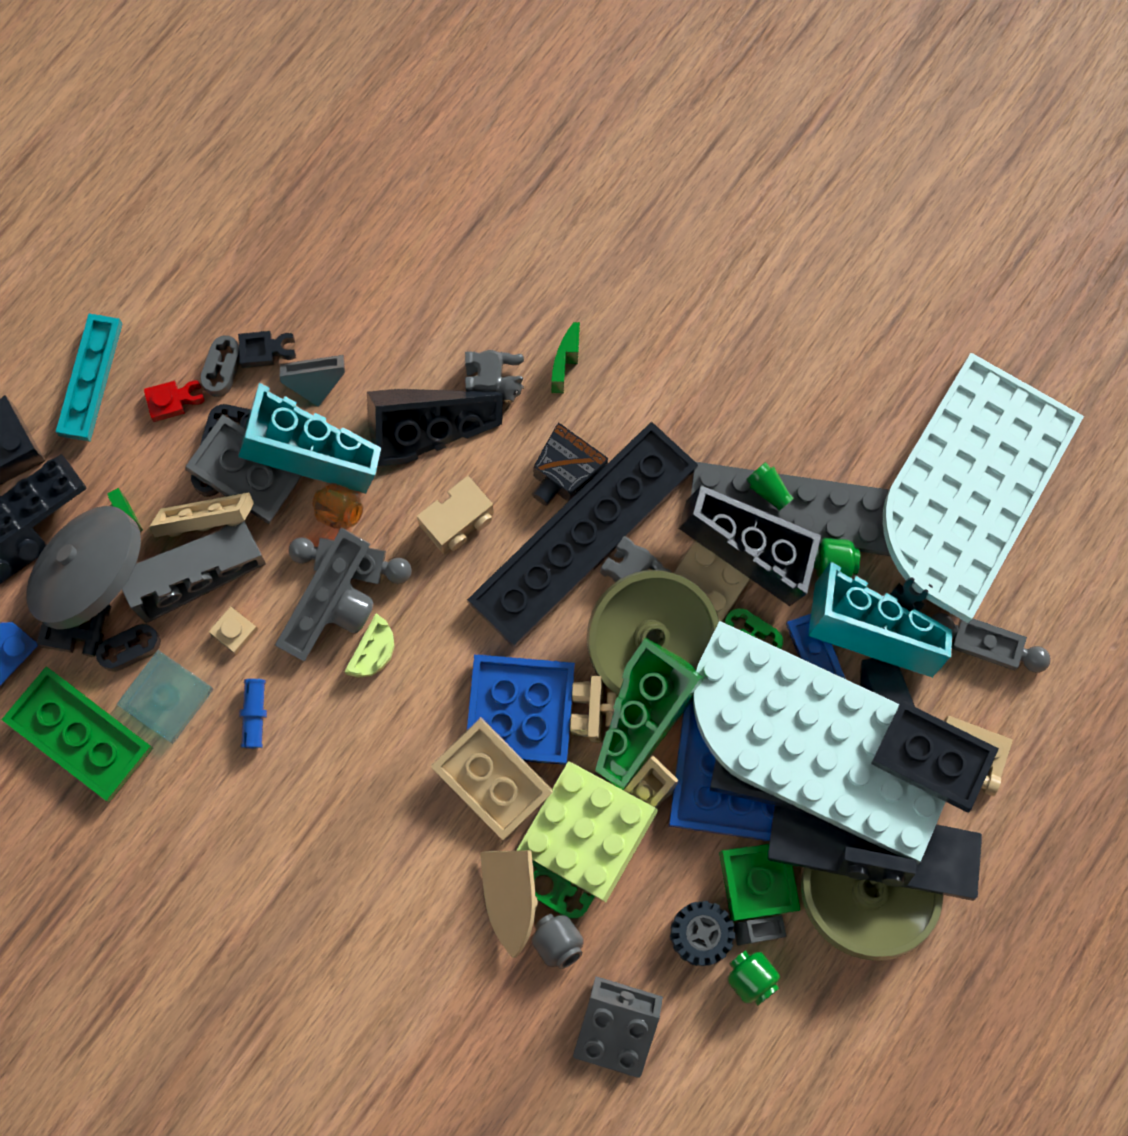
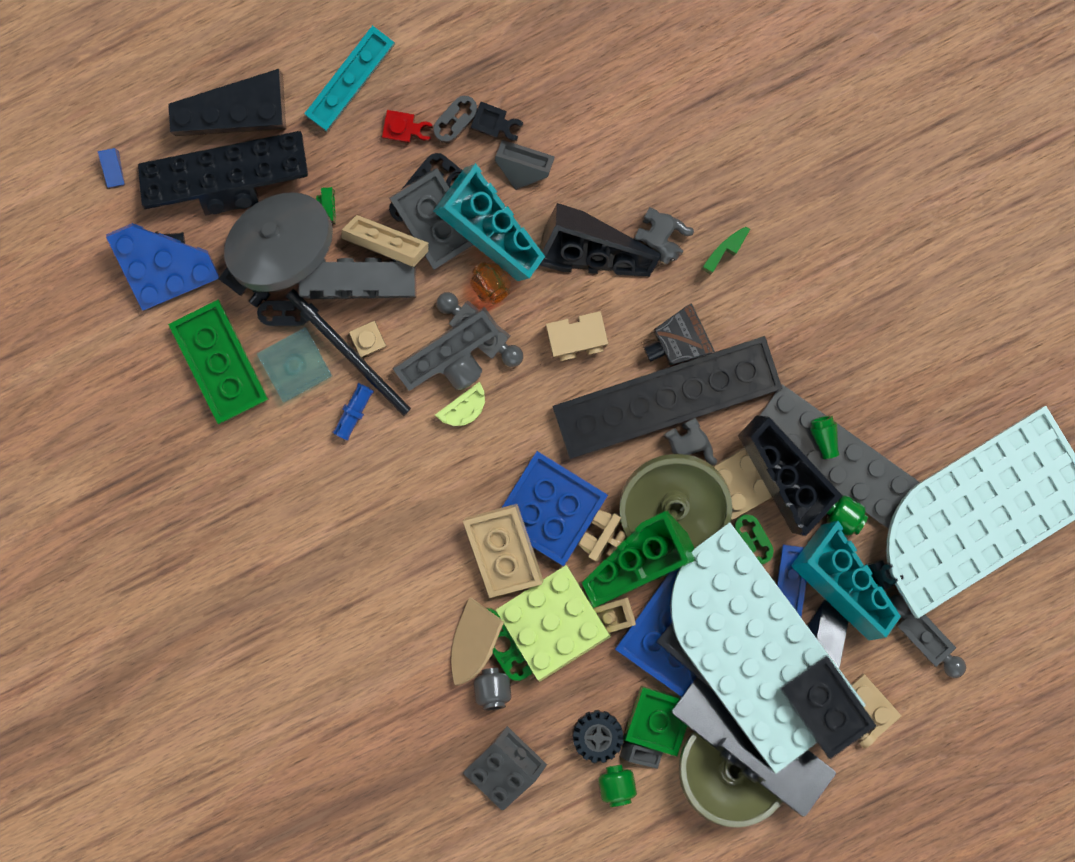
camera: 30 degrees right, 15 degrees up
(156, 630) = (309, 313): none -> black bar

